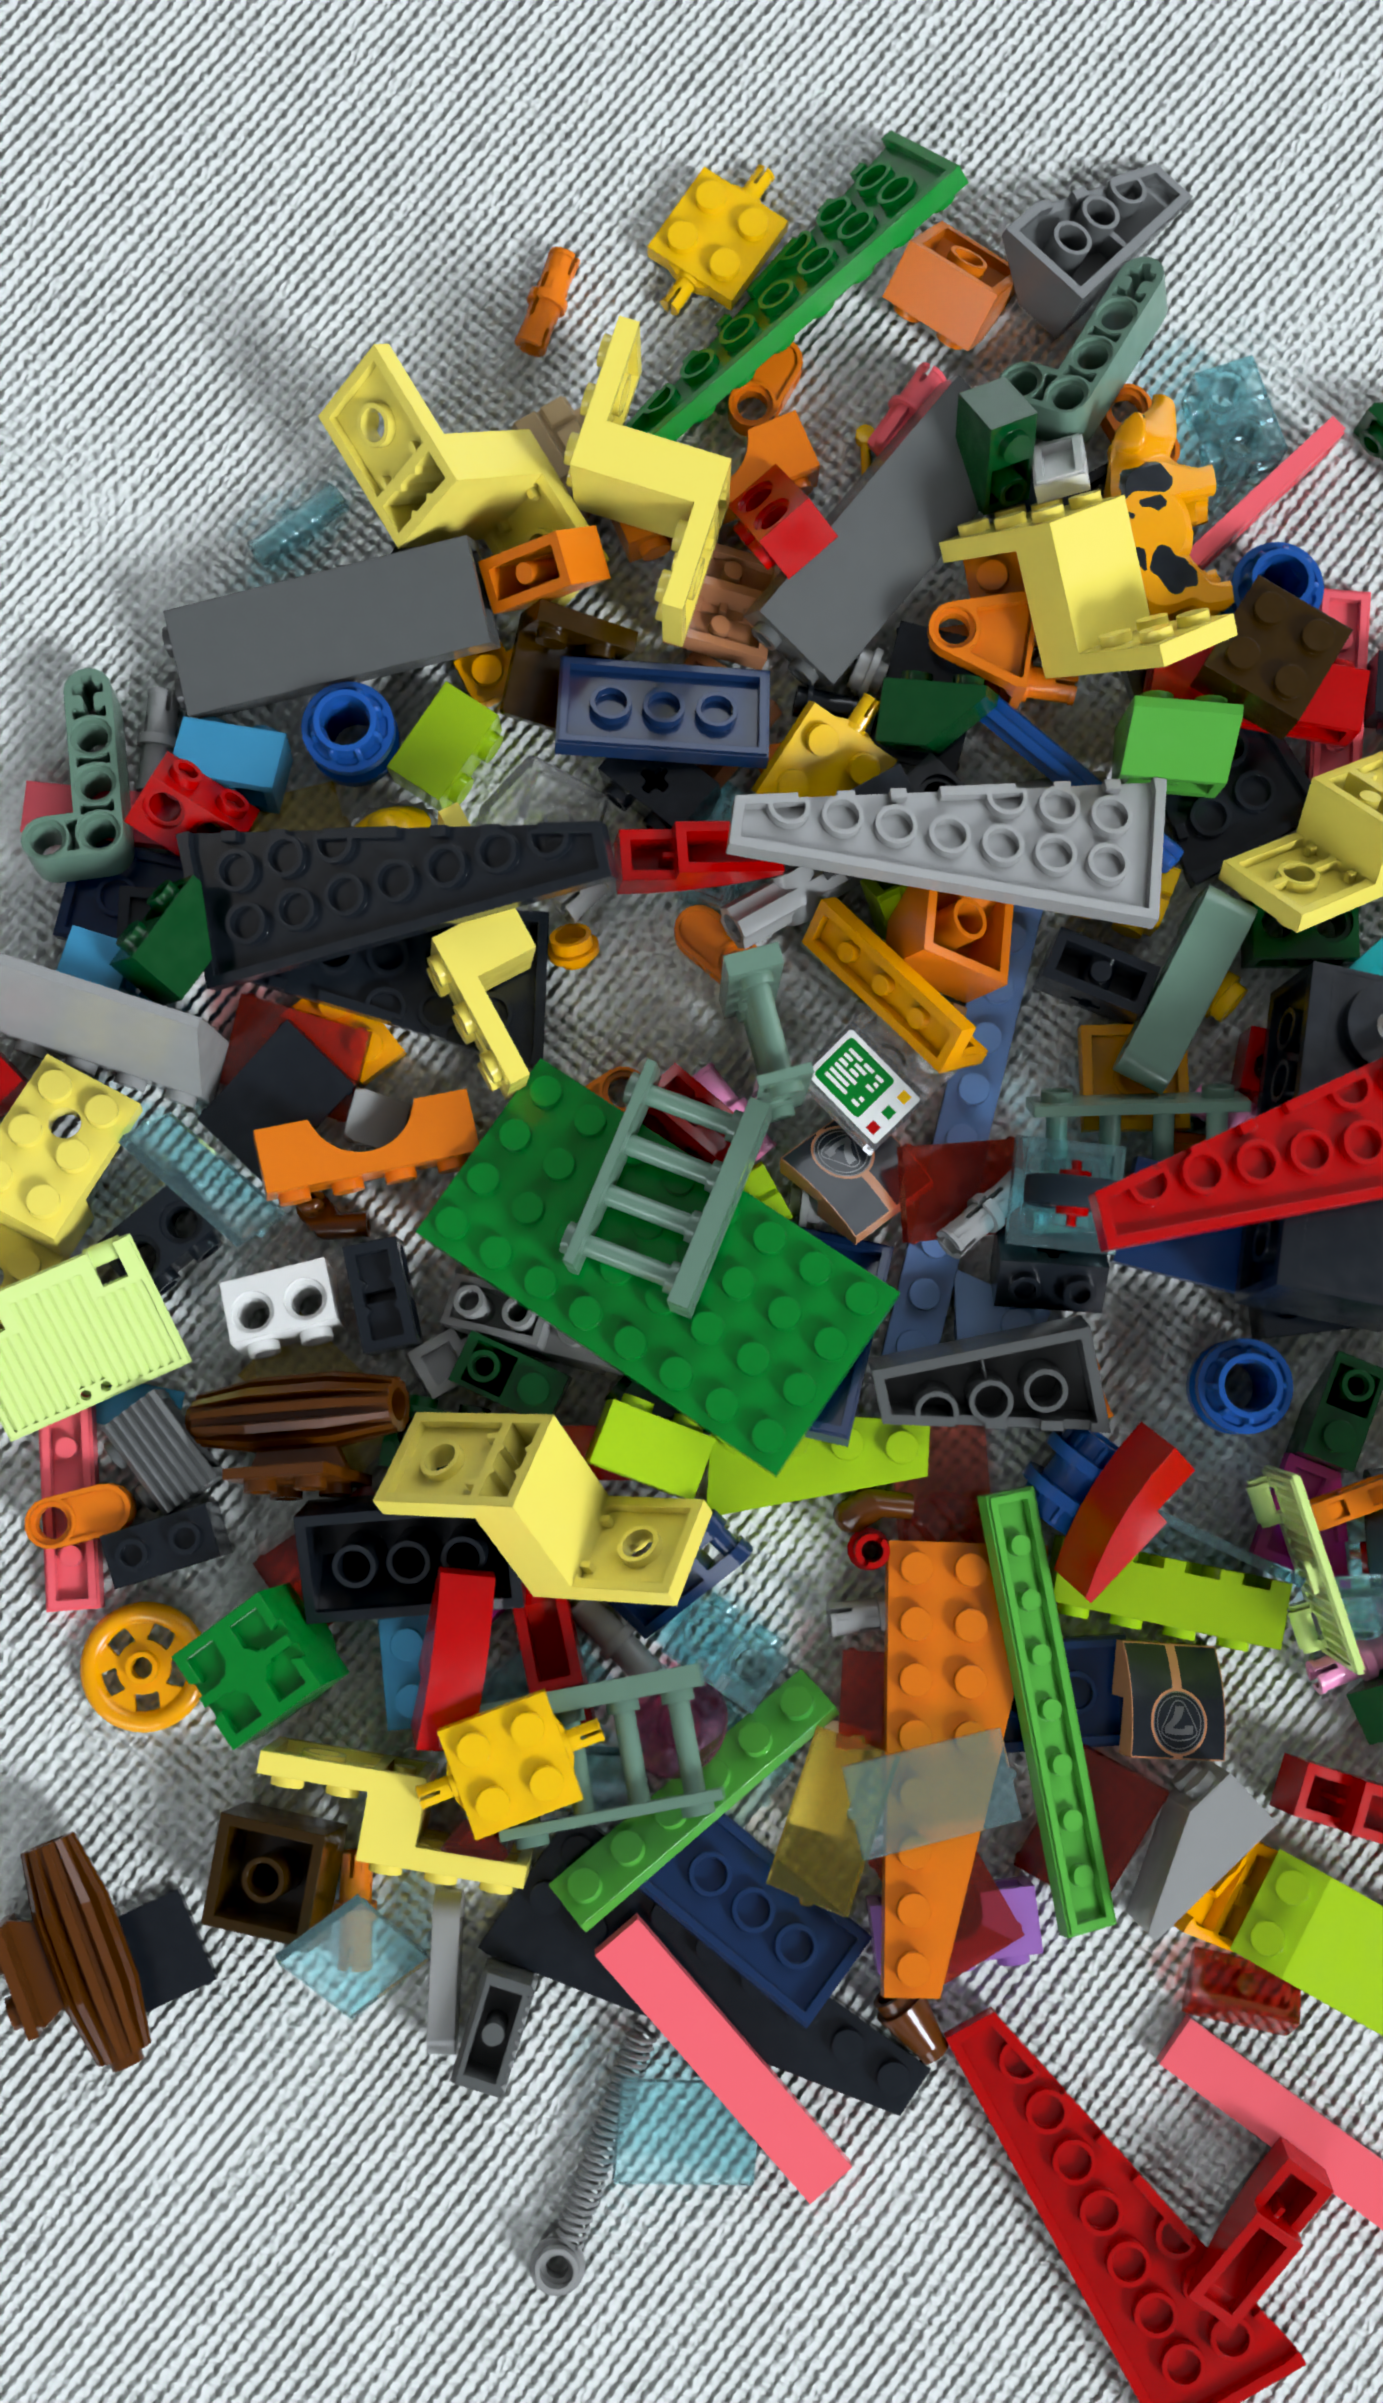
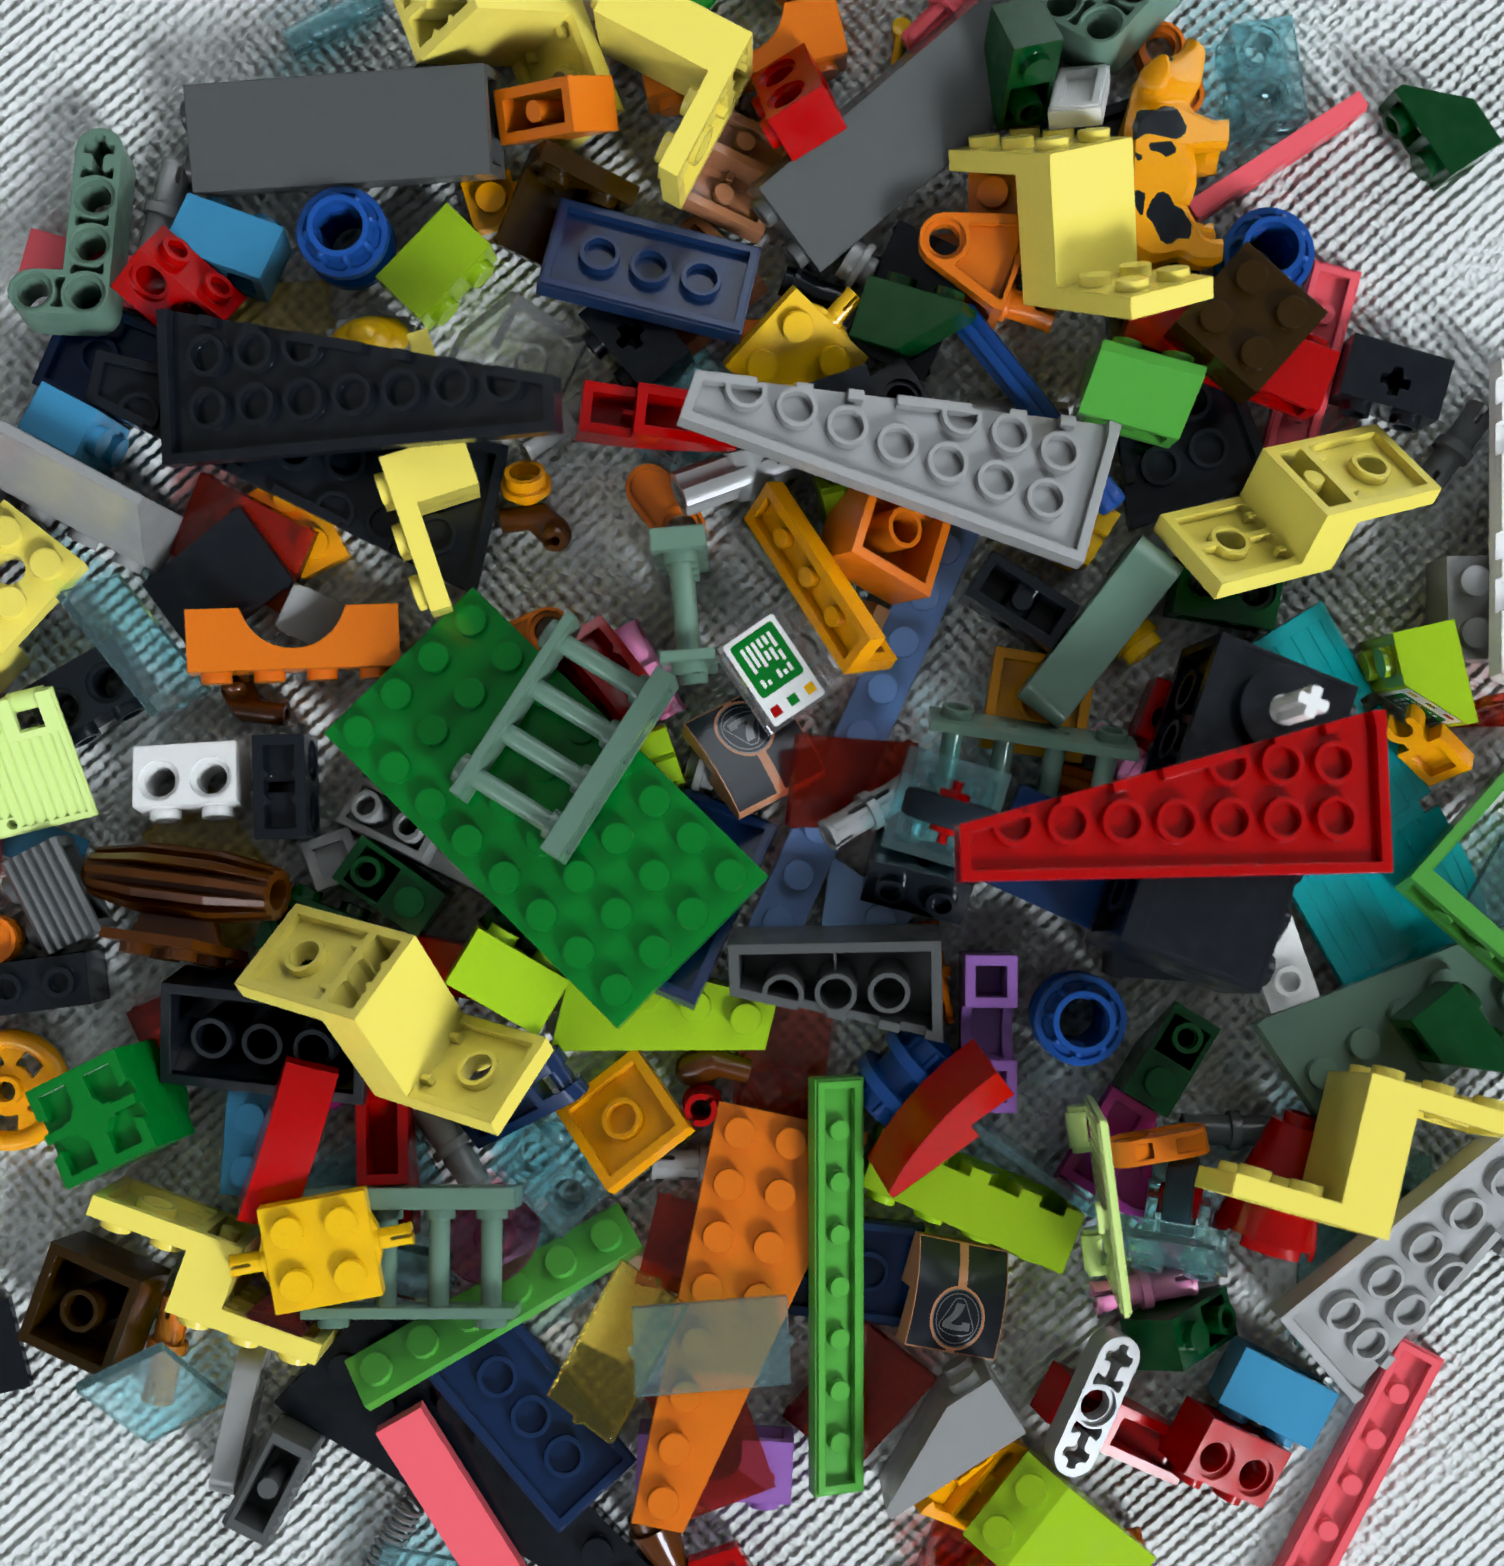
camera: 10 degrees right, 5 degrees up
(169, 945) = (130, 417): dark green slope -> none
(594, 983) = (540, 521): none -> reddish brown arm
(794, 1580) = (625, 1121): none -> light orange plate
(1142, 1389) = (986, 1011): none -> medium lavender arch
(1348, 1803) = (1098, 1422): none -> light grey beam

